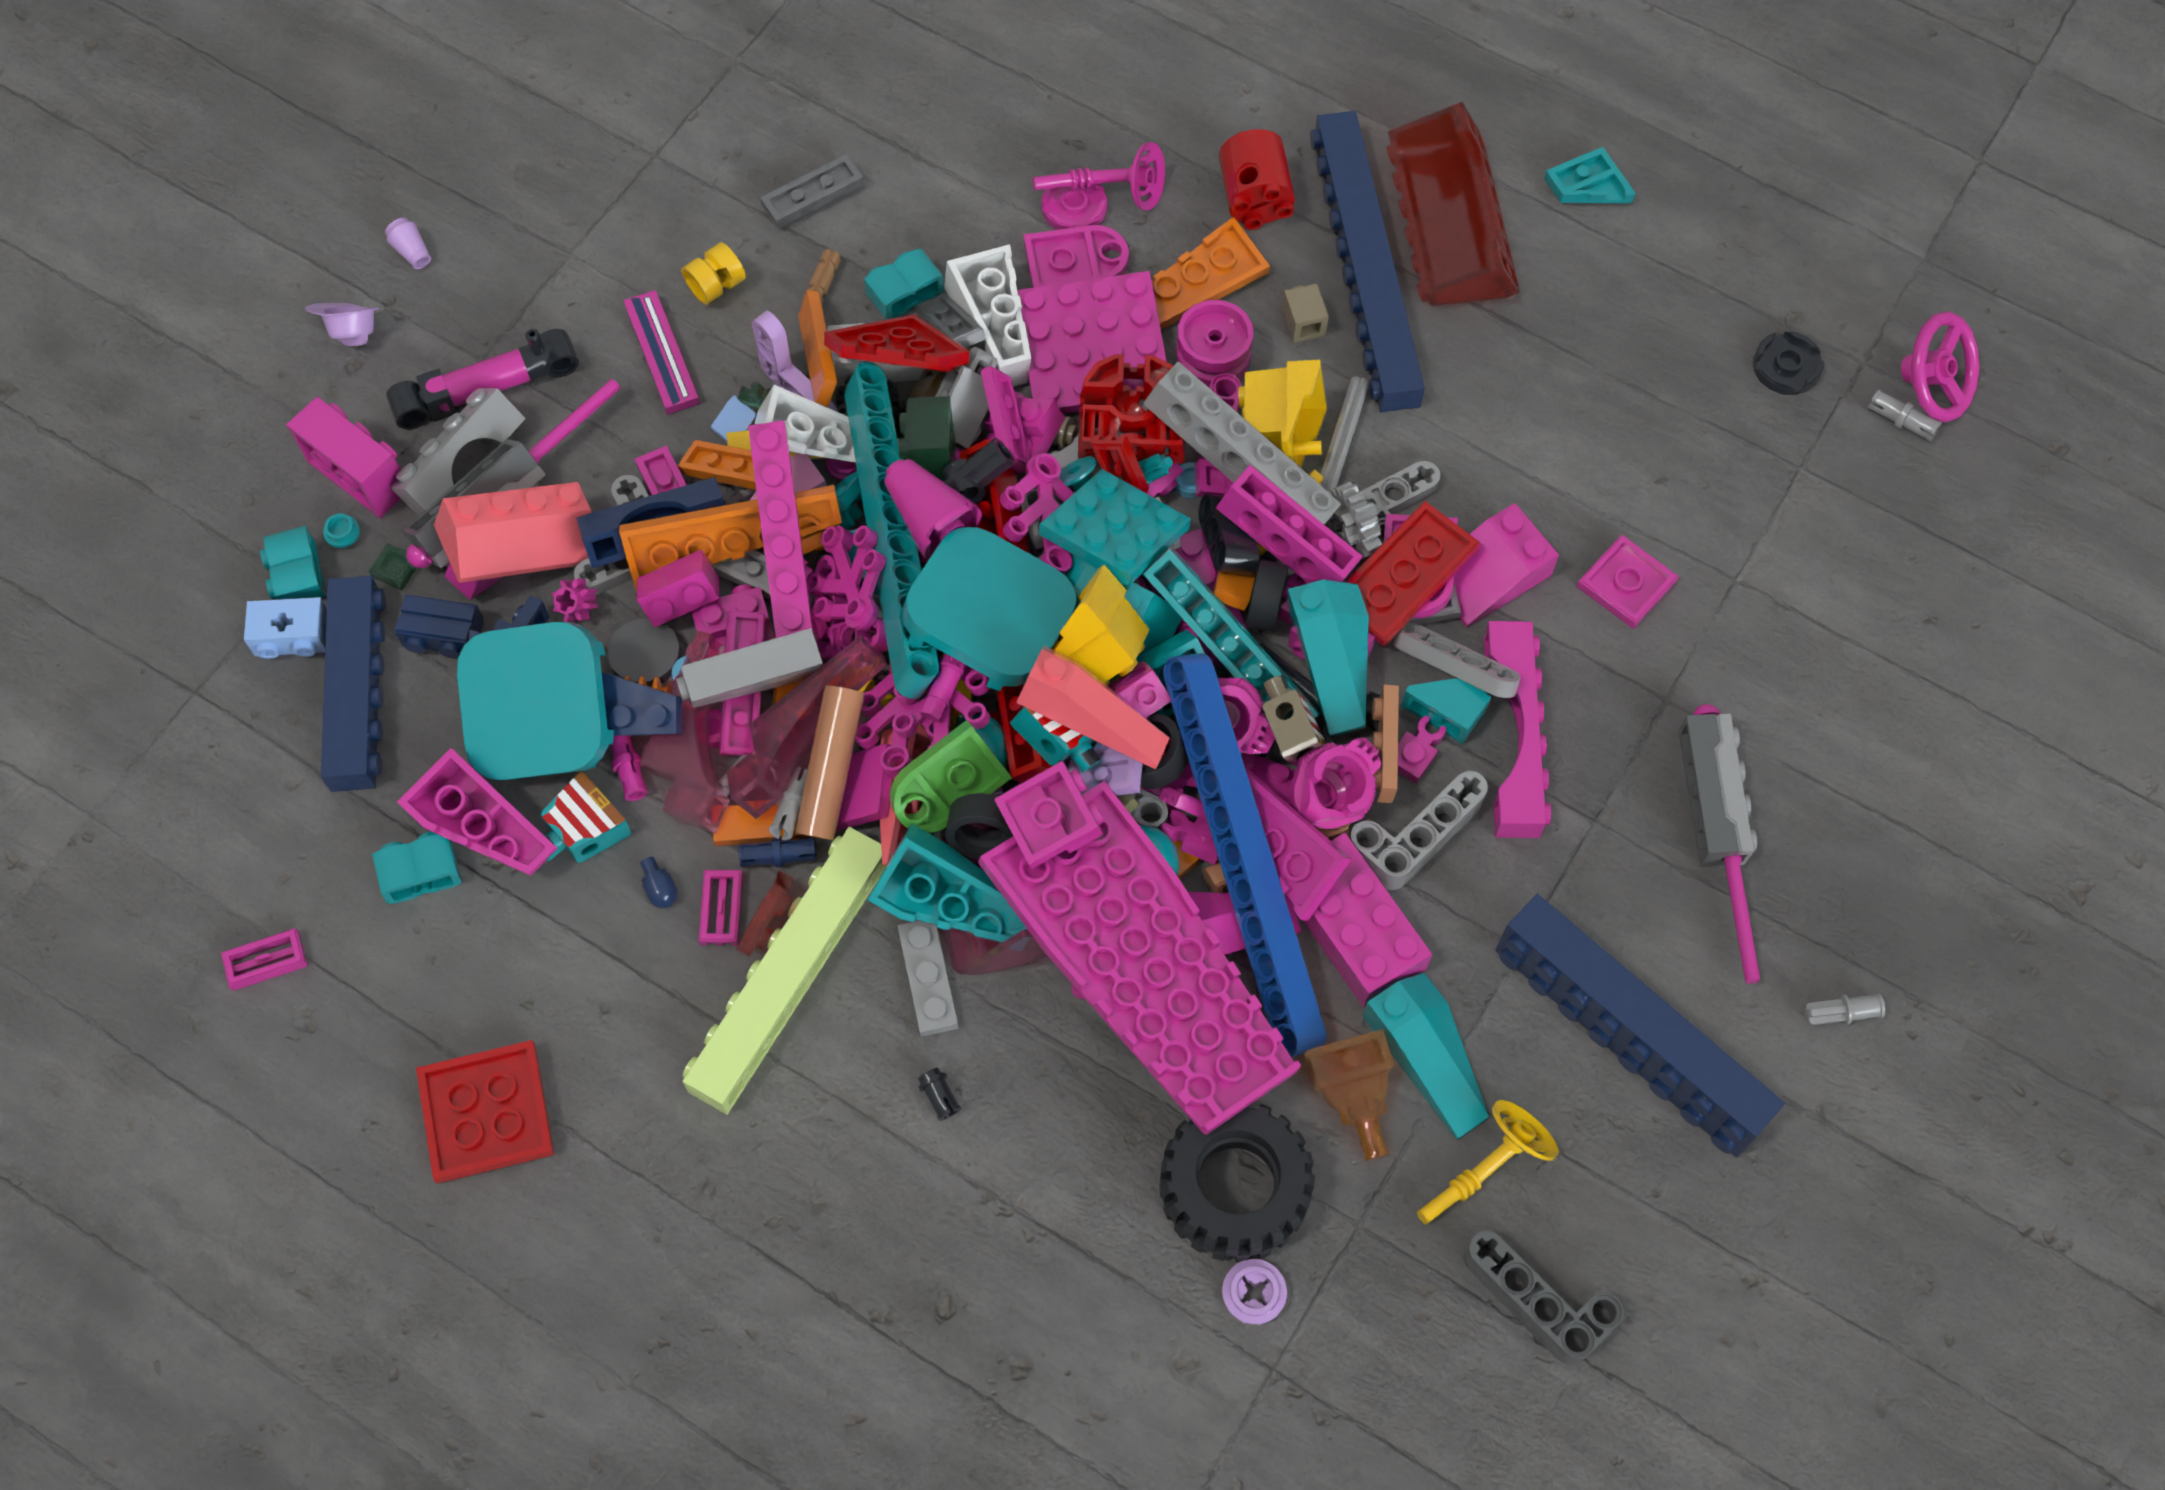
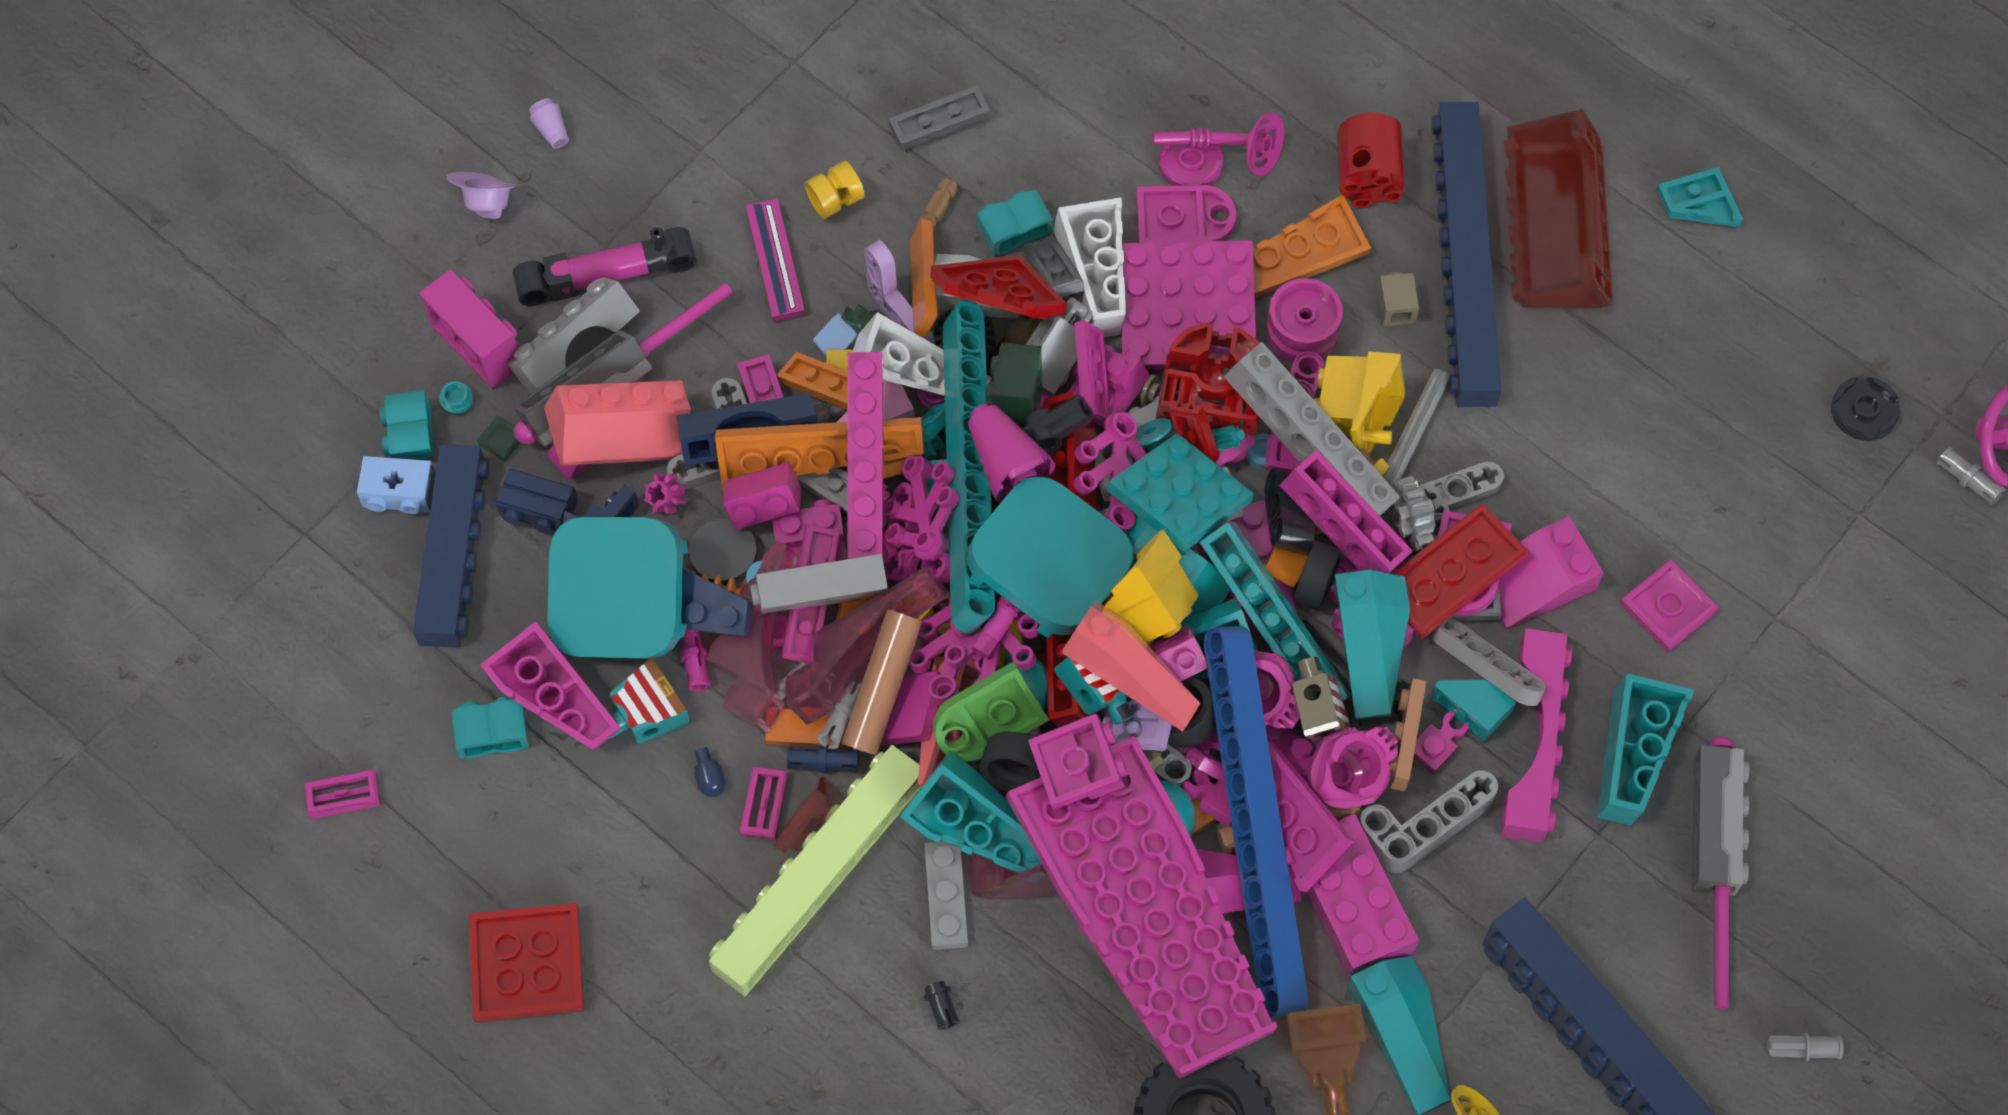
camera: 10 degrees right, 0 degrees up
(1621, 722) = (1638, 741): none -> teal wedge

